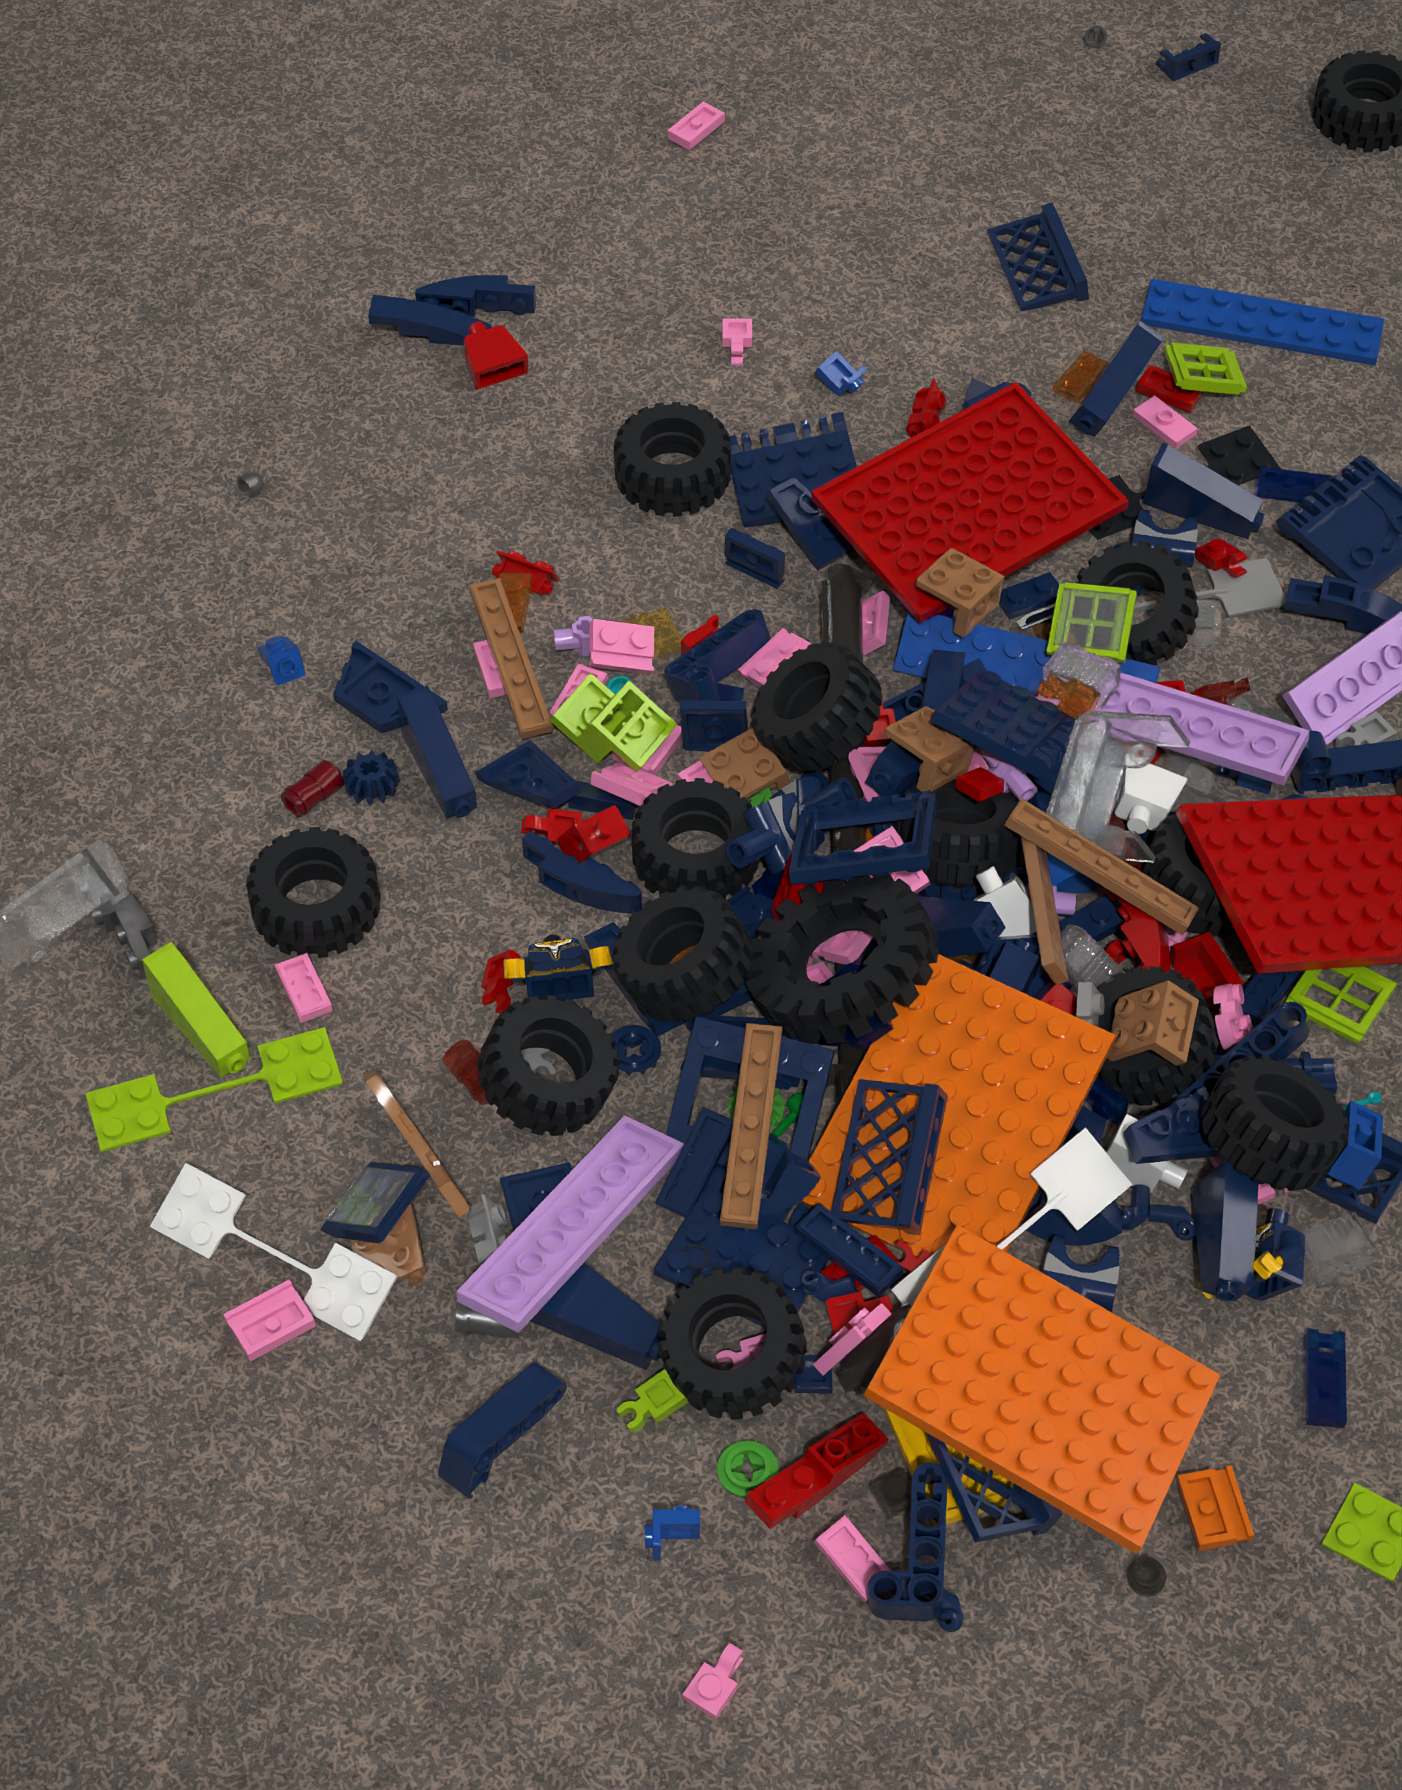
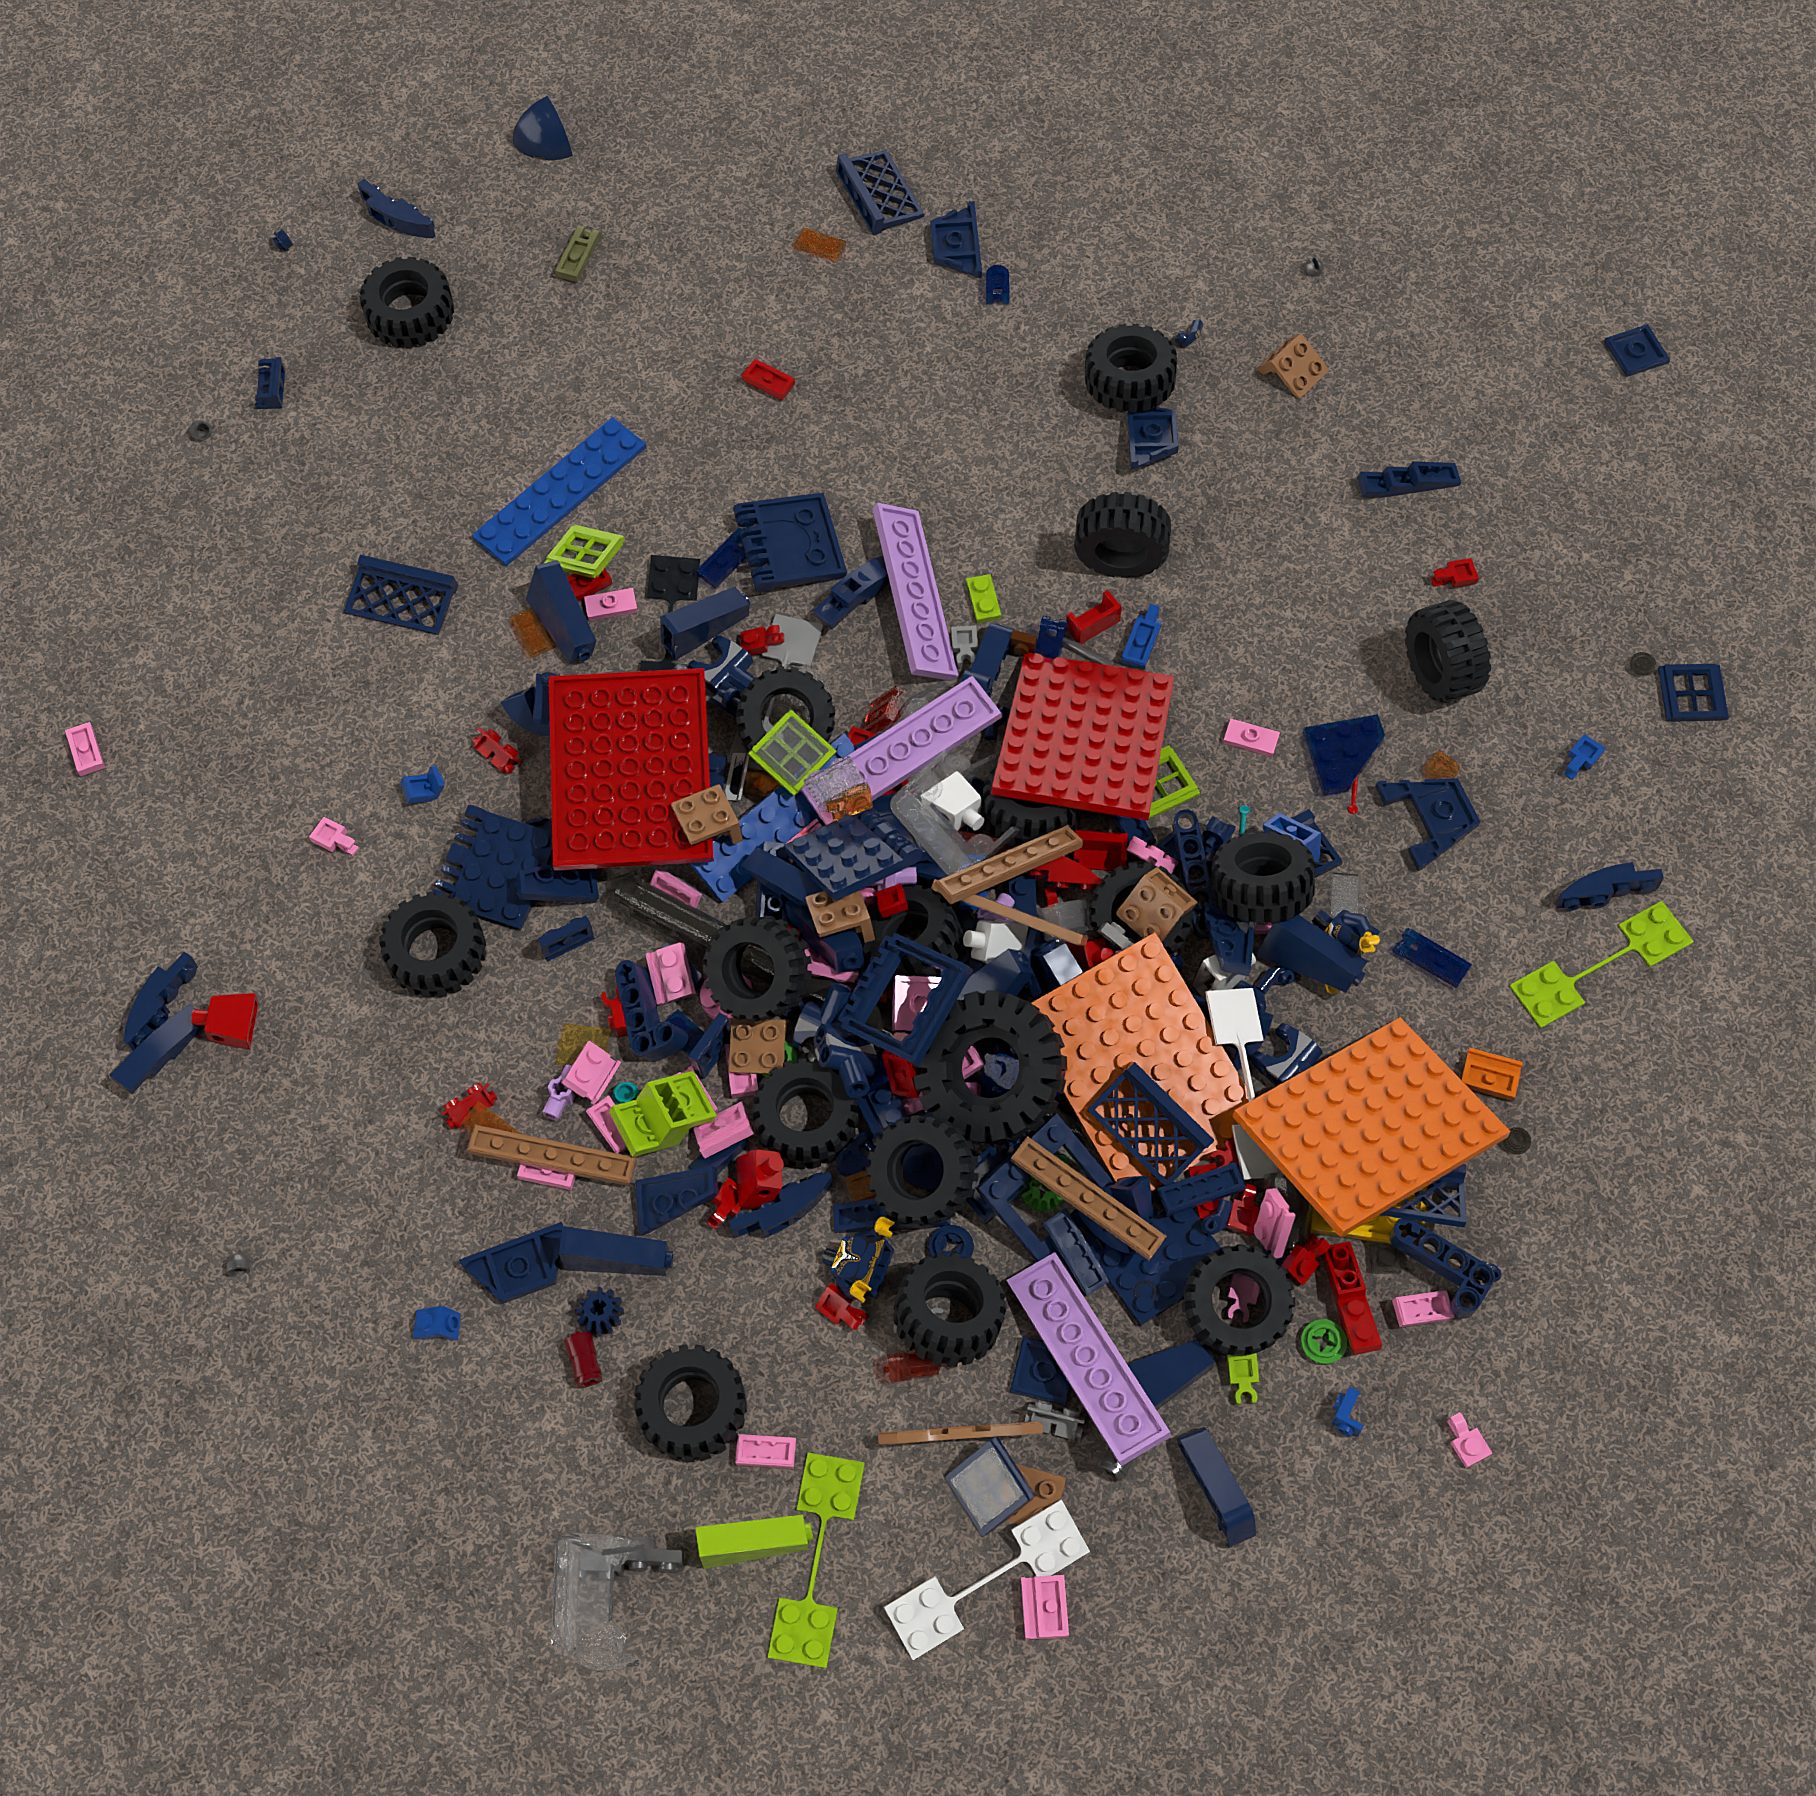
camera: 60 degrees left, 10 degrees up
(829, 1400) = (1302, 1262): none -> red plate

